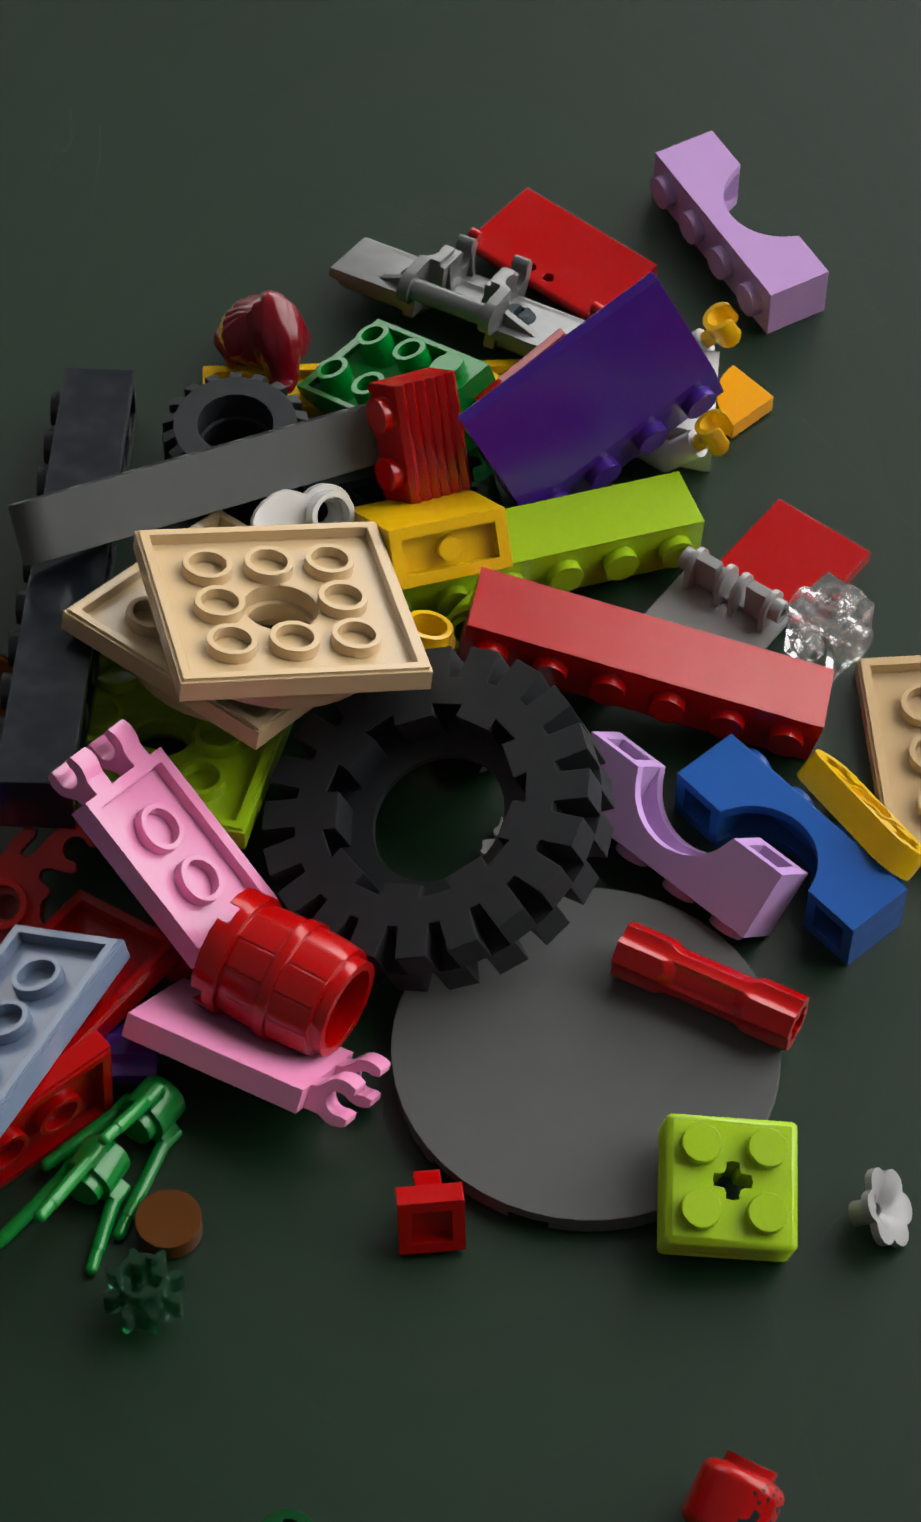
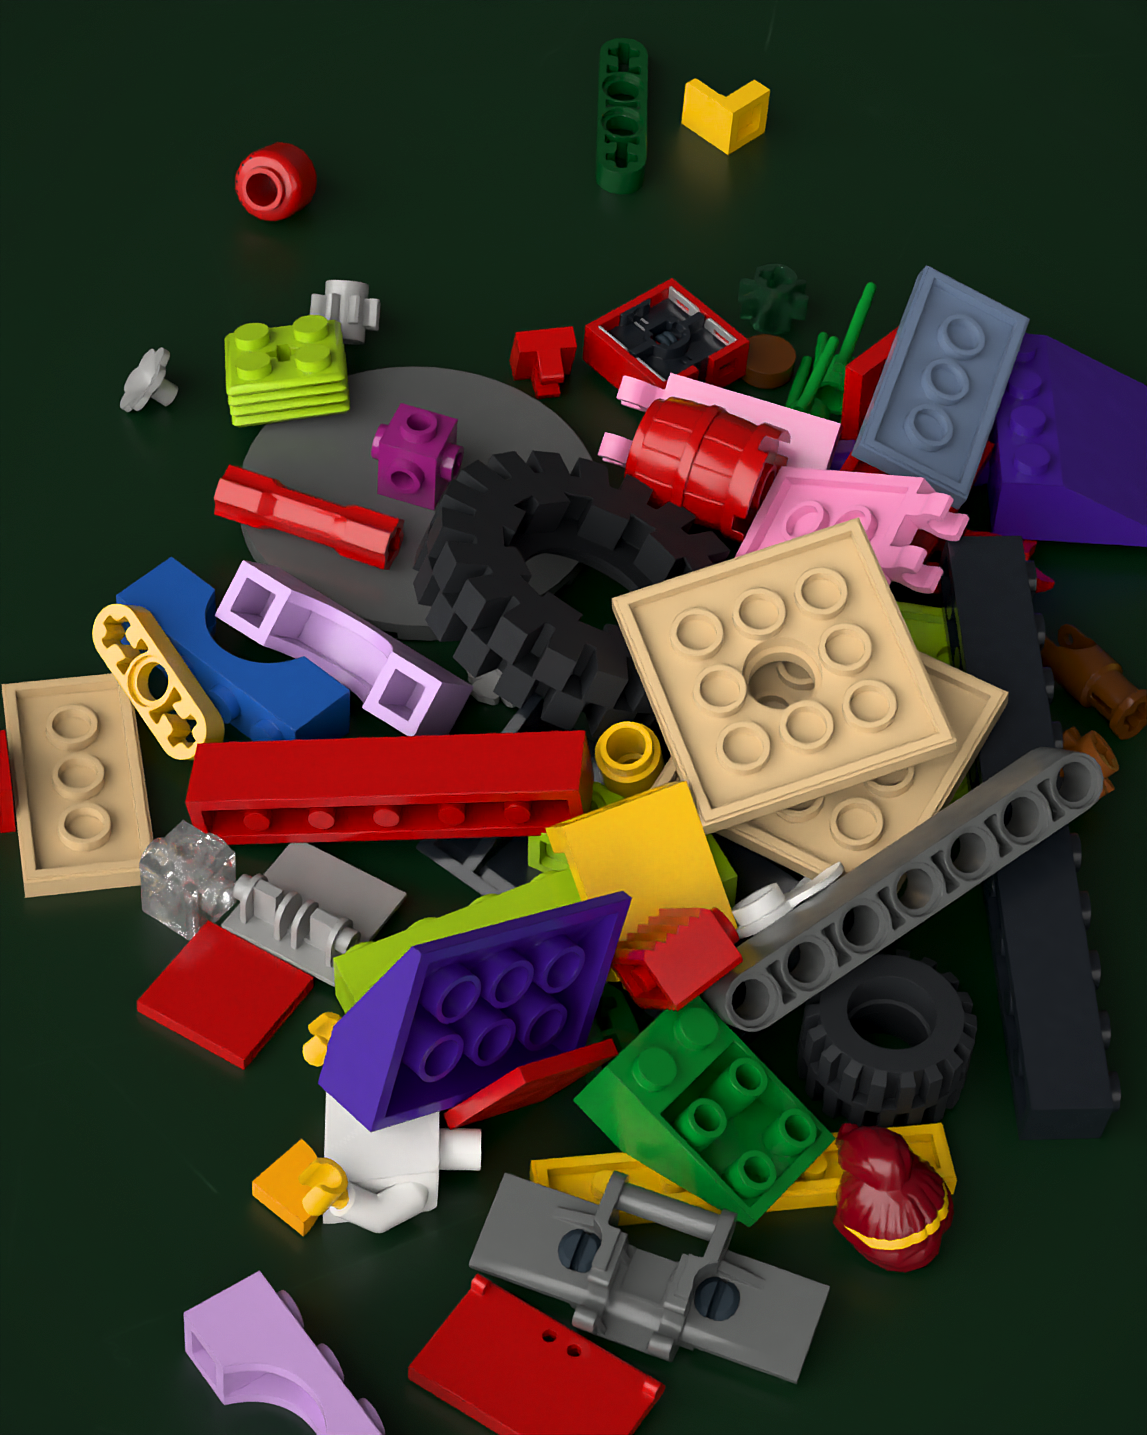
camera: 170 degrees right, 5 degrees down
(289, 1211) = (663, 335): none -> piece
(590, 1038) = (417, 456): none -> magenta brick
(668, 1297) = (350, 306): none -> light grey gear

